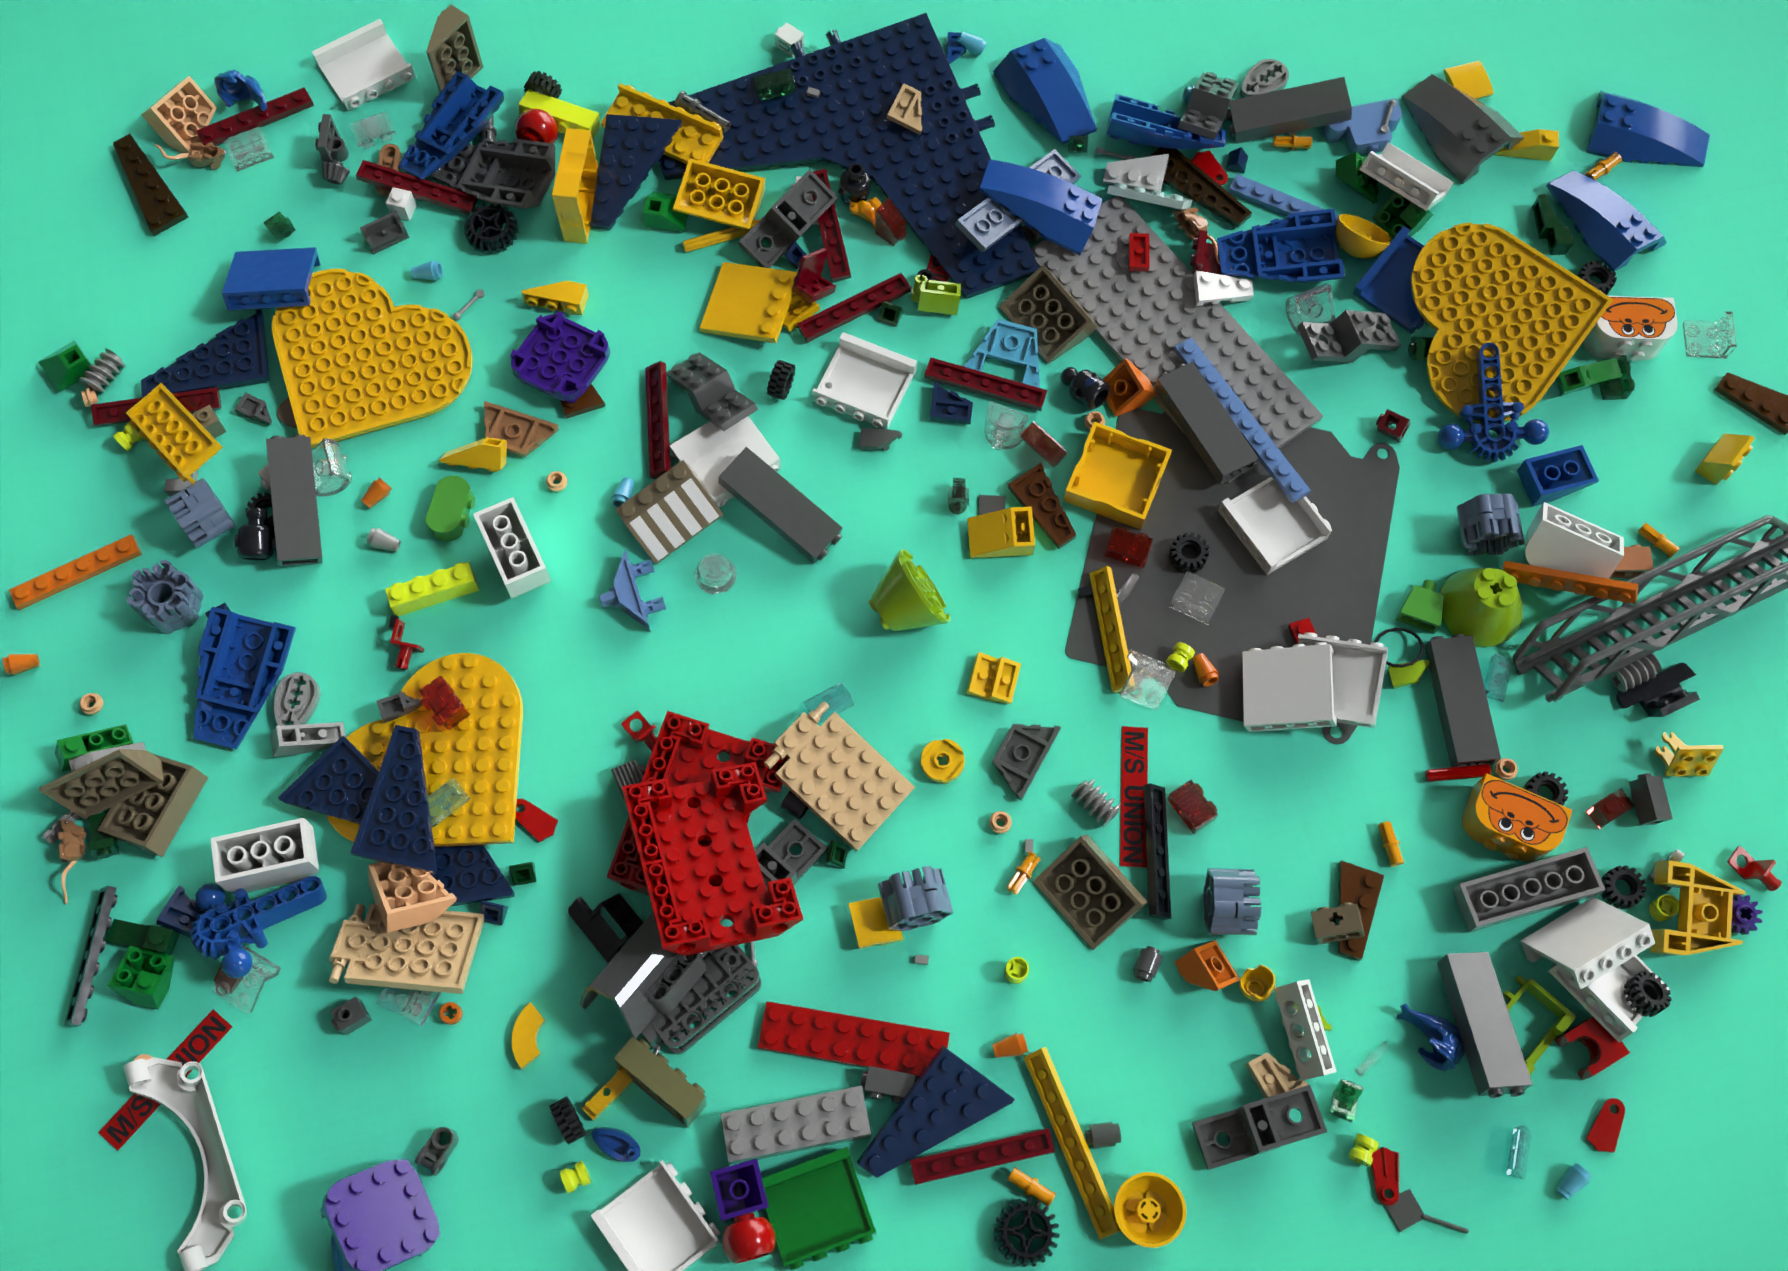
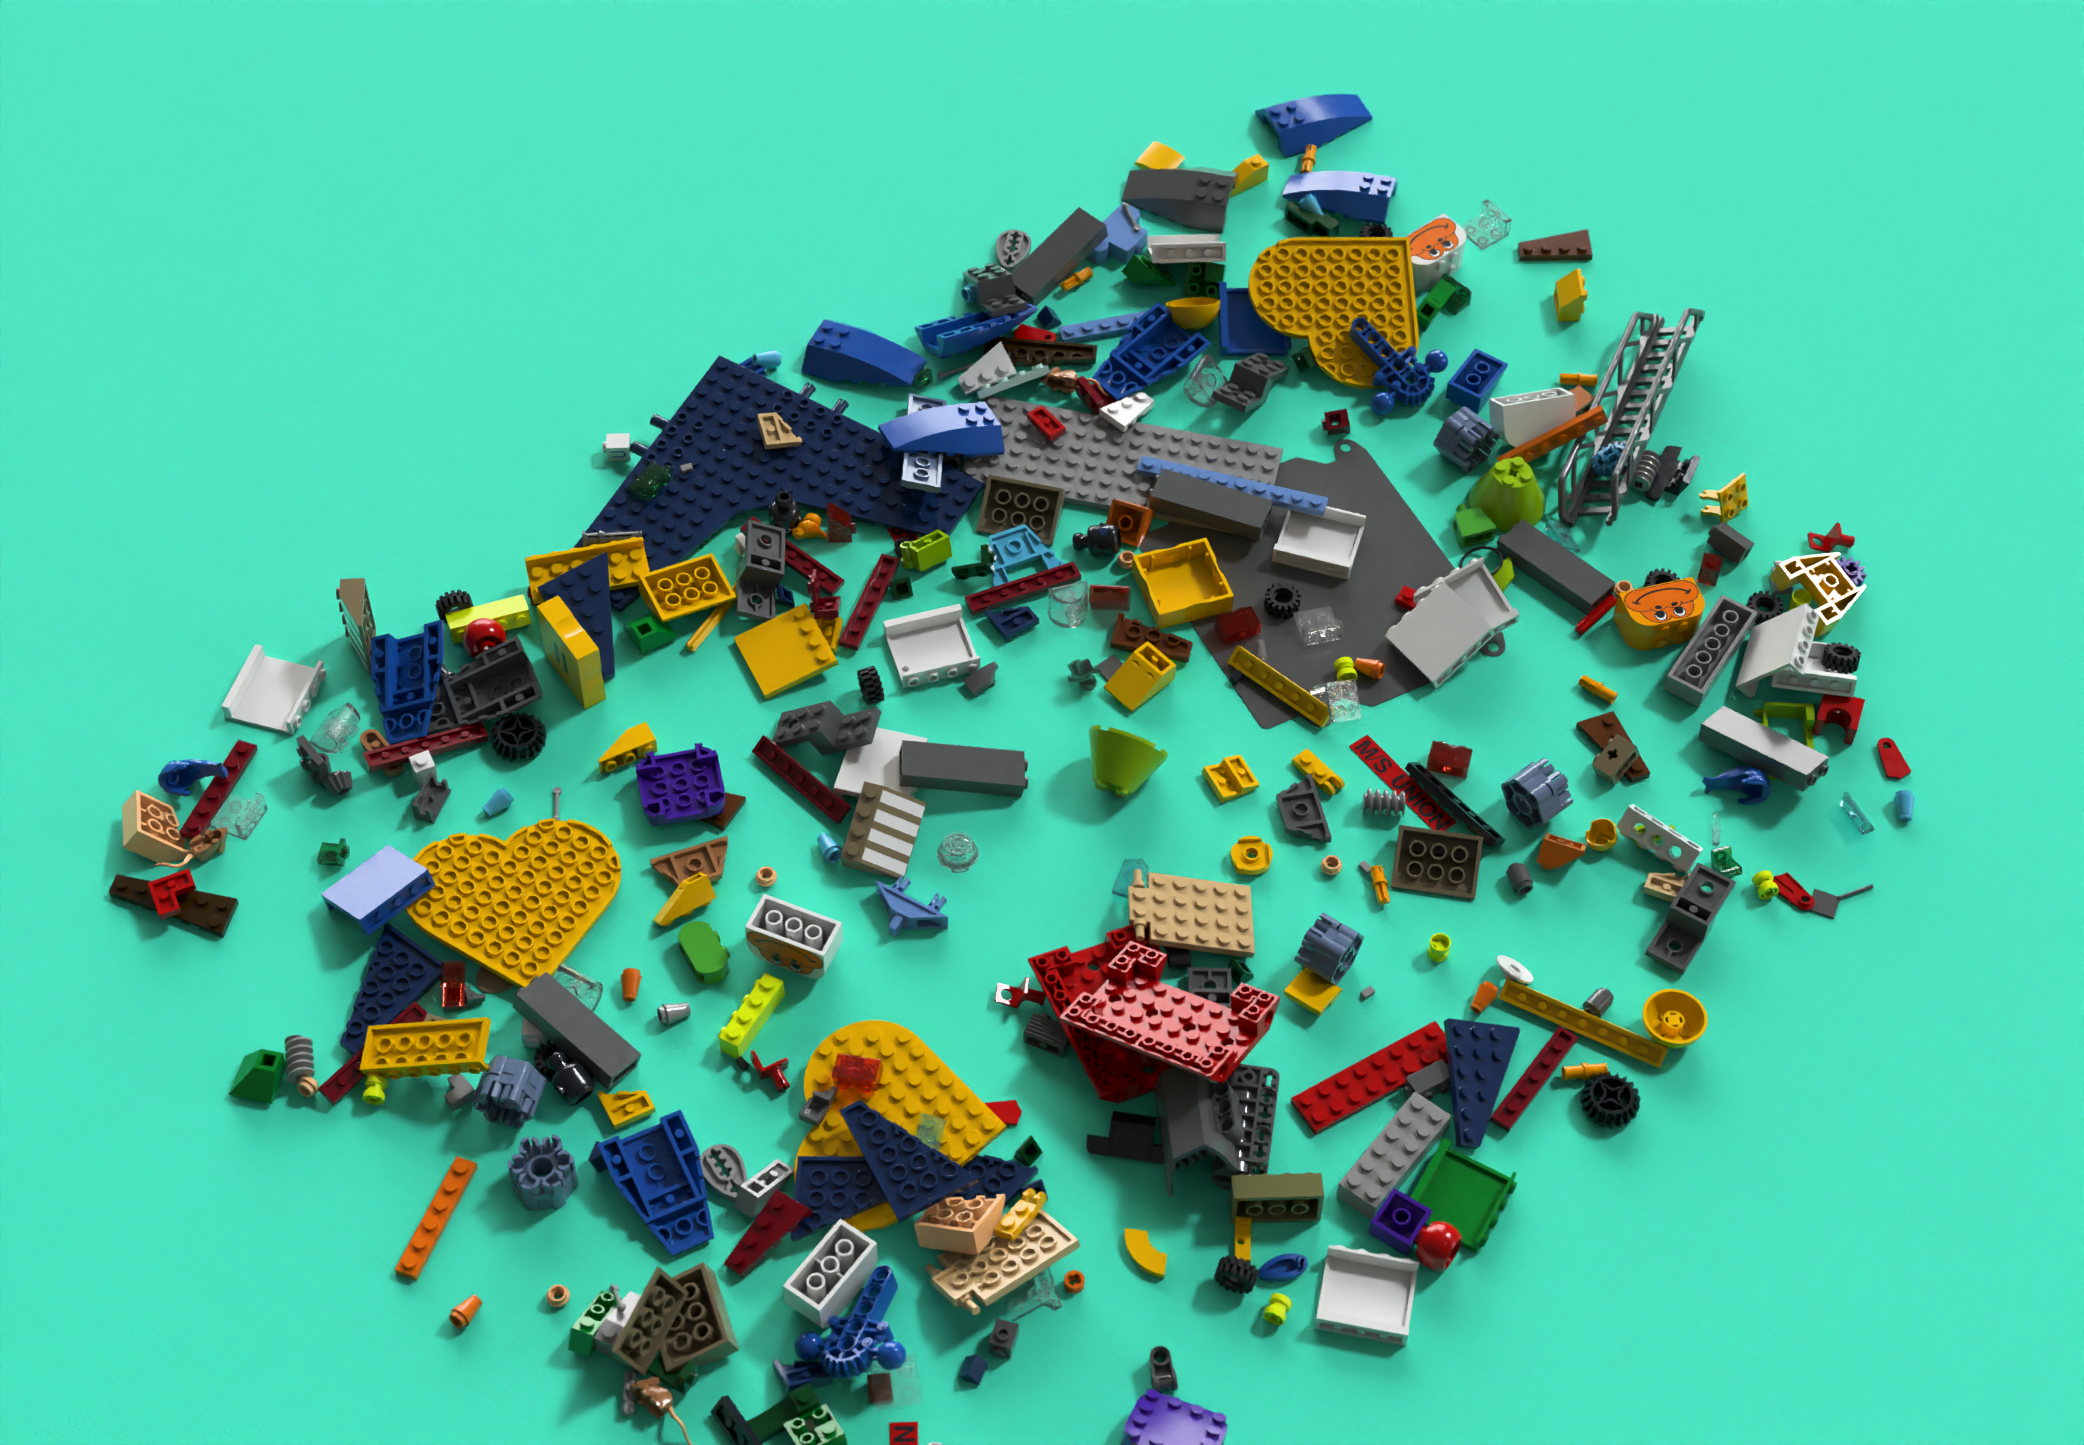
camera: 40 degrees left, 15 degrees down
(132, 731) = (621, 1306): none -> light grey hinge
(137, 171) = (167, 888): none -> red plate
(253, 391) = (452, 983): none -> clear red slope
(274, 776) = (774, 1221): none -> dark red wing
(278, 590) = (626, 1106): none -> yellow wing
(308, 1021) = (973, 1369): none -> dark blue slope
(456, 924) = (1020, 1215): none -> yellow hinge
(971, 342) = (980, 569): none -> dark green bracket
(1060, 1043) = (1514, 970): none -> white dish
(1071, 727) = (1308, 763): none -> yellow hinge
(1562, 210) = (1310, 204): none -> medium azure cone
(1606, 635) = (1607, 459): none -> dark azure gear

